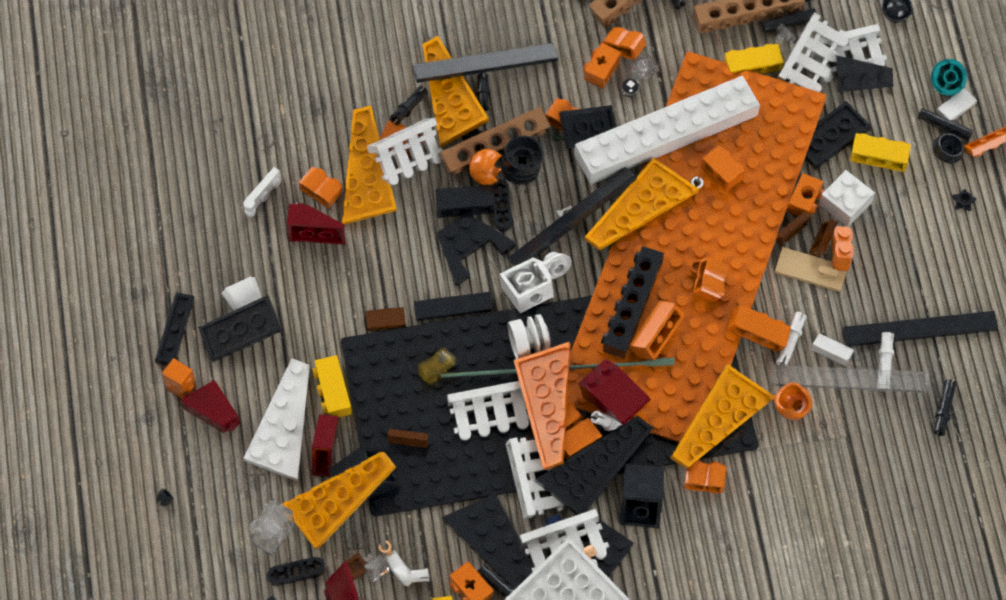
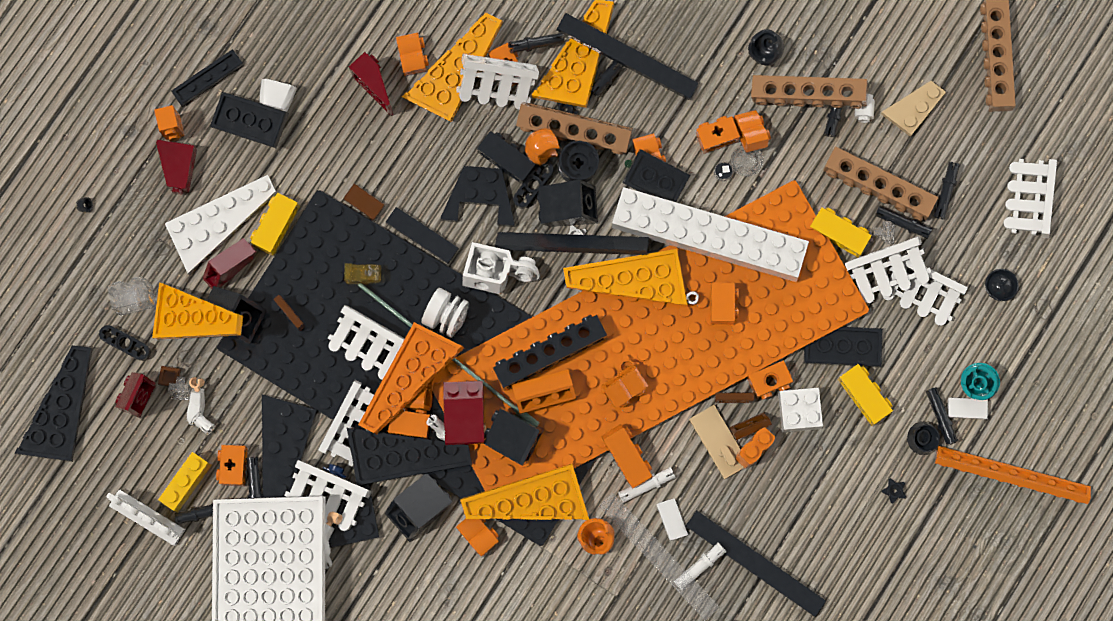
camera: 50 degrees right, 15 degrees up
(262, 191) = (364, 21): white plate -> none
(540, 196) = (567, 204): none -> black slope
(667, 377) = (512, 436): none -> black slope
(861, 75) = (912, 317): black wing -> none

